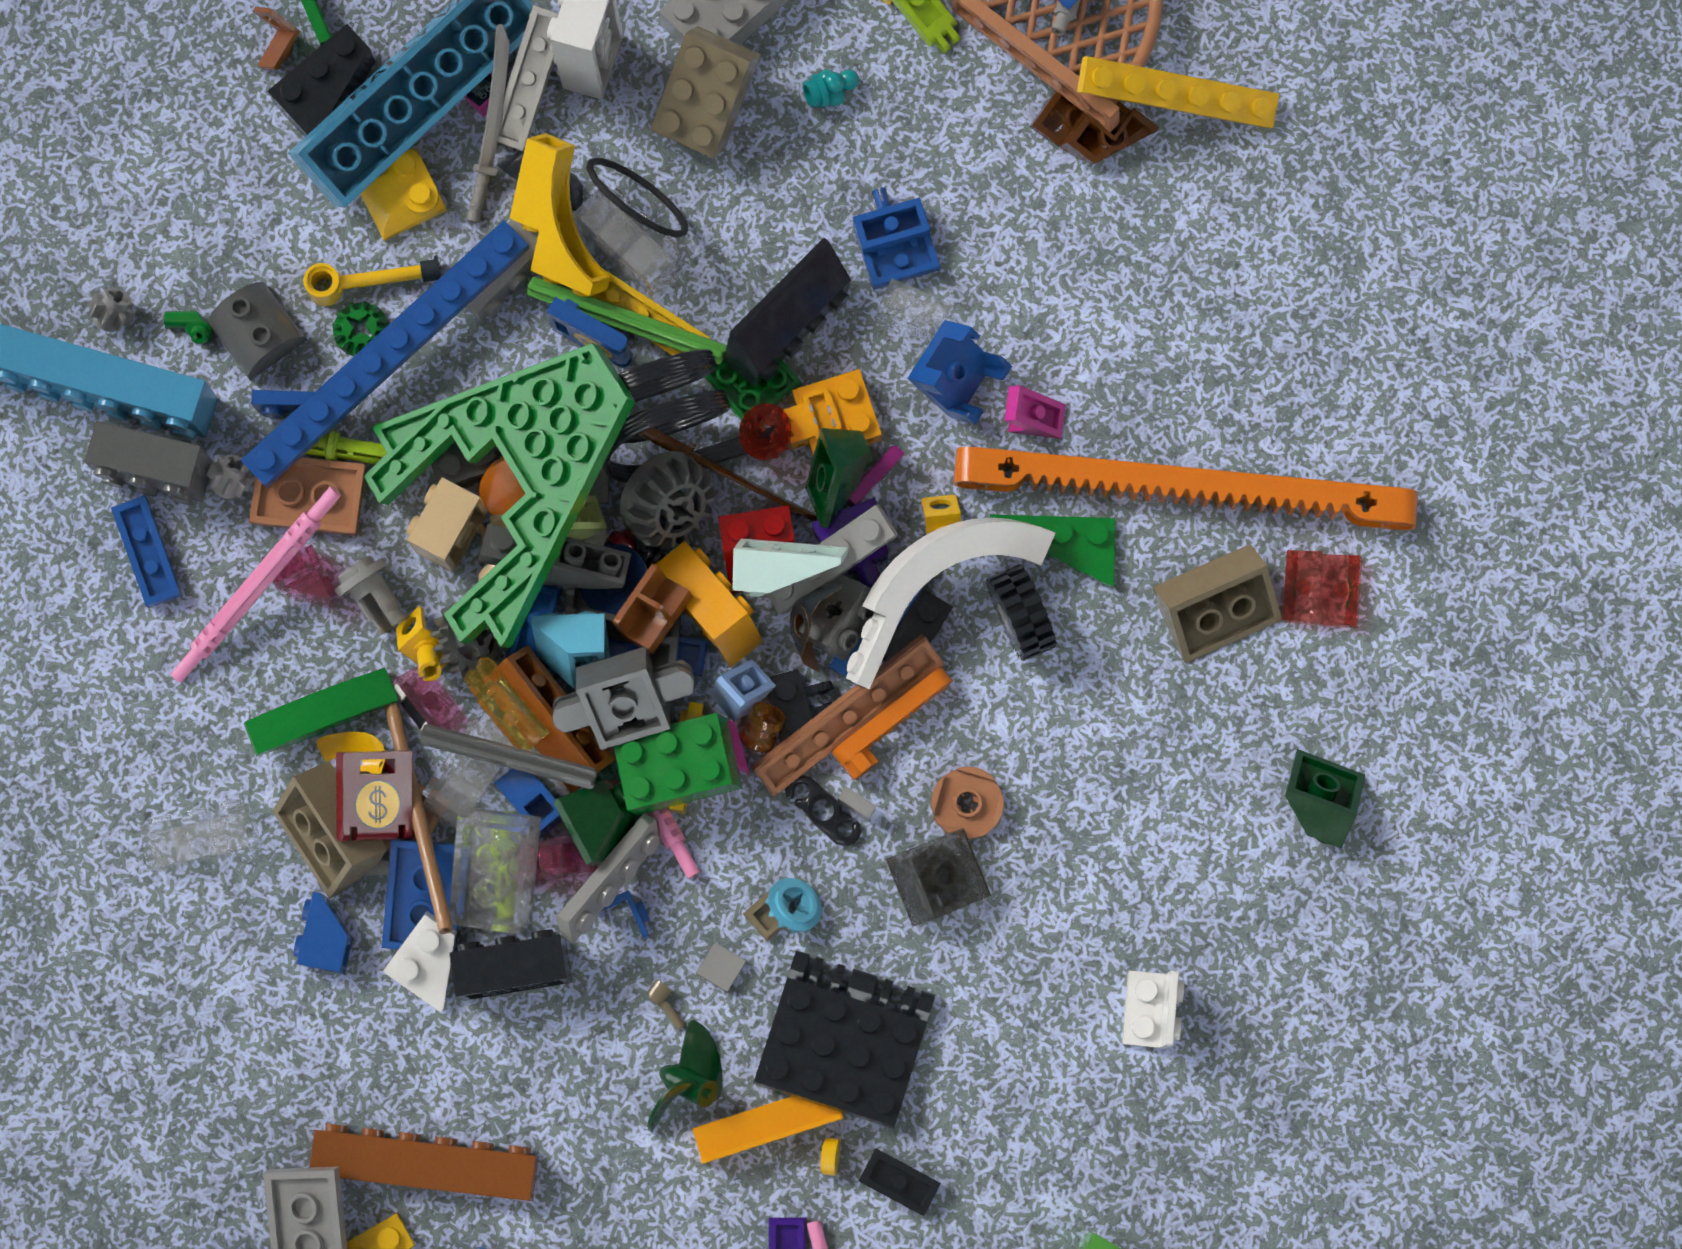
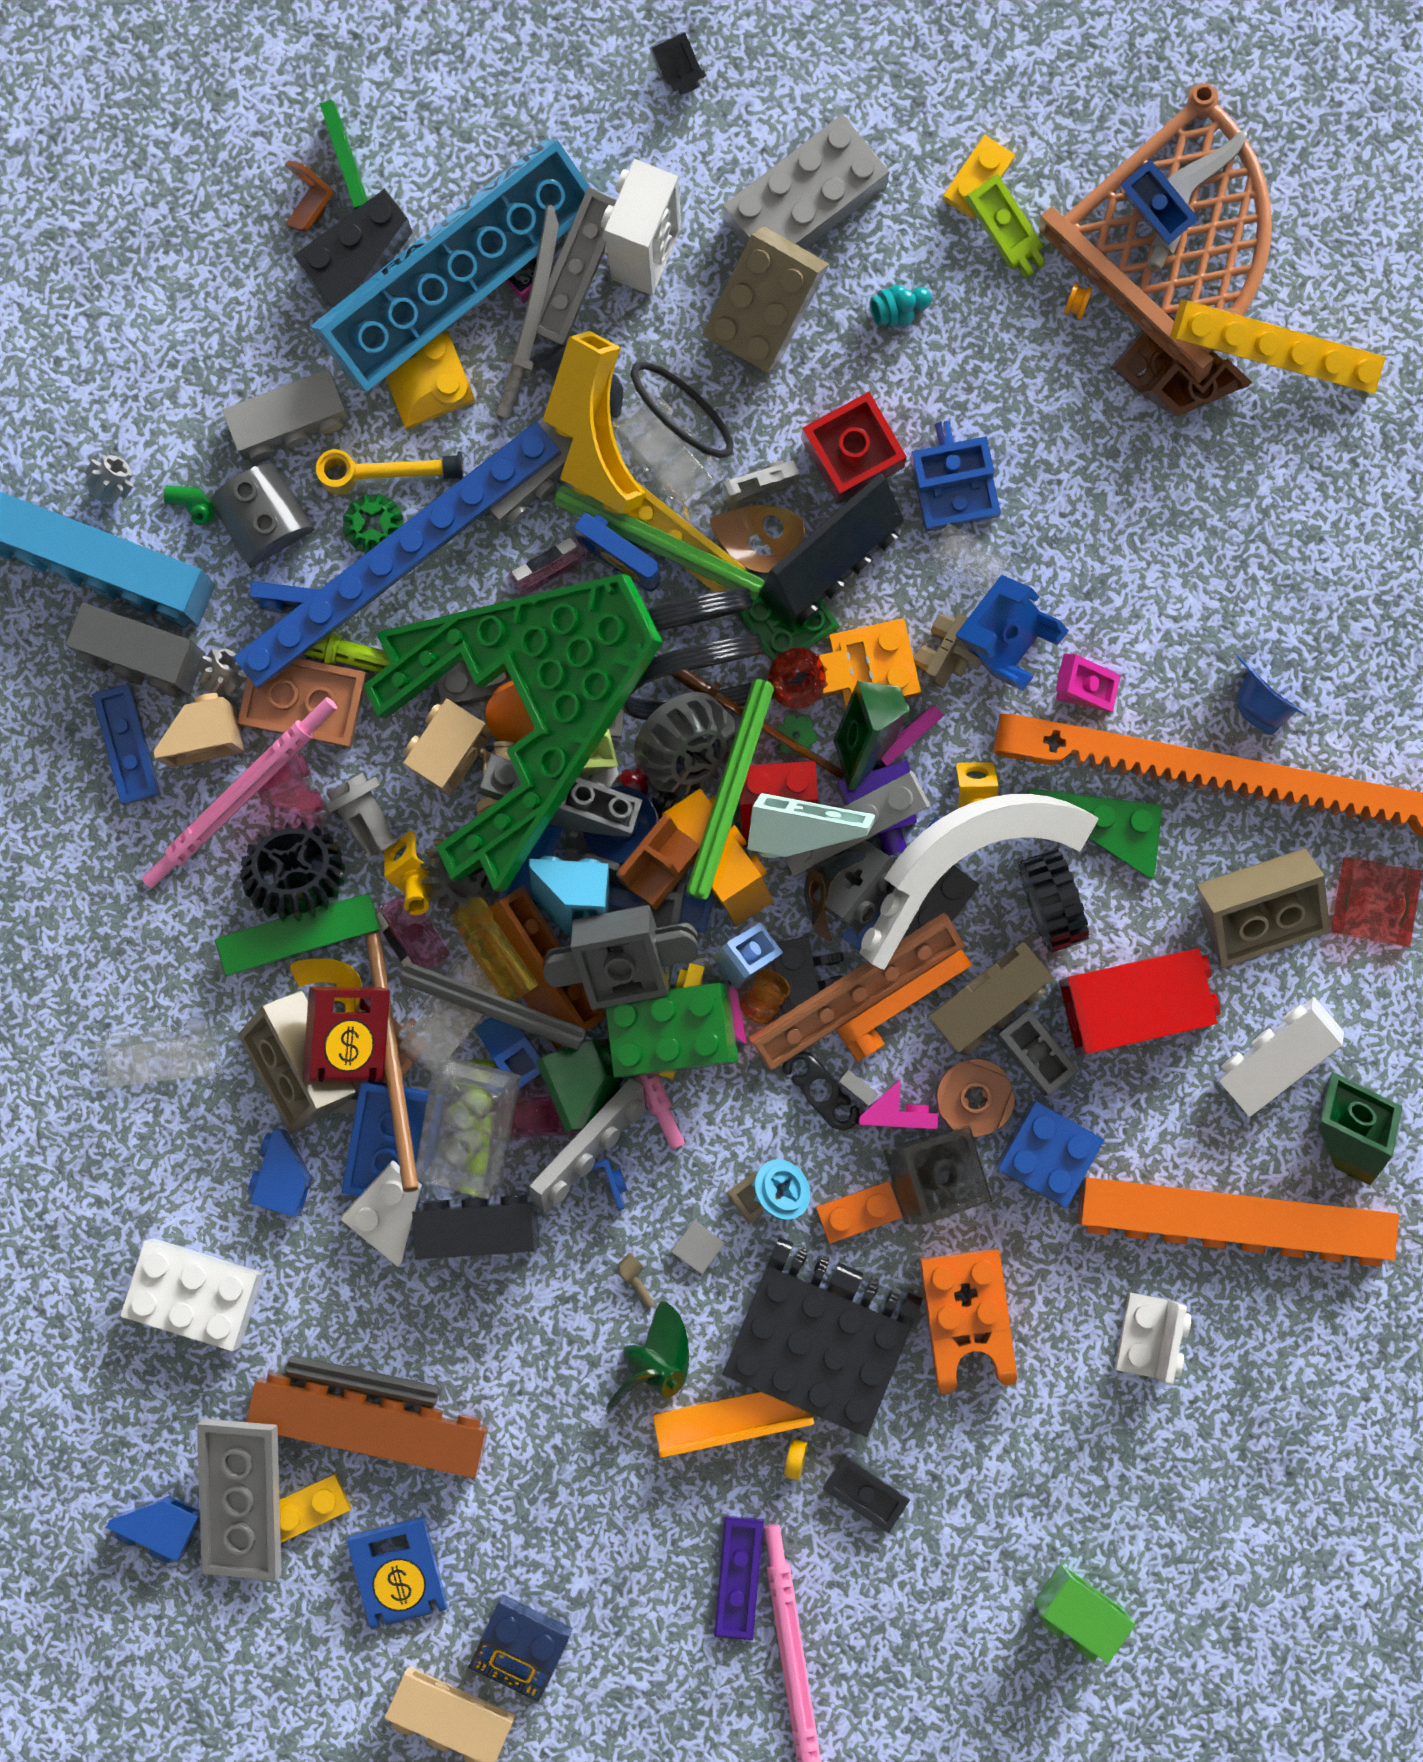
camera: 10 degrees right, 5 degrees up
(216, 533) = (201, 733): none -> tan slope
(248, 1055) = (192, 1294): none -> white brick
(272, 238) = (286, 416): none -> light grey brick
(315, 661) = (296, 883): none -> black gear
(416, 1123) = (362, 1381): none -> dark grey axle
(527, 351) = (548, 566): none -> clear pink slope
(699, 299) = (739, 524): none -> medium nougat piece
(711, 537) = (730, 789): none -> bright green axle
(714, 260) = (760, 484): none -> light grey wing
(776, 477) = (803, 726): none -> green plant
(798, 217) = (853, 447): none -> red brick
(868, 920) = (859, 1212): none -> orange plate
(885, 826) = (886, 1112): none -> dark pink slope
(906, 399) = (951, 655): none -> dark tan hips
(972, 709) = (991, 999): none -> dark tan wedge
(982, 1014) = (976, 1327): none -> orange brick
(992, 69) = (1077, 300): none -> light orange bush
(1019, 755) = (1036, 1053): none -> dark grey brick
(1040, 848) = (1049, 1154): none -> blue brick
(1110, 698) = (1139, 1001): none -> red slope
(1196, 417) = (1263, 705): none -> blue piece
(1221, 892) = (1238, 1219): none -> orange brick
(1245, 736) = (1281, 1056): none -> white wedge

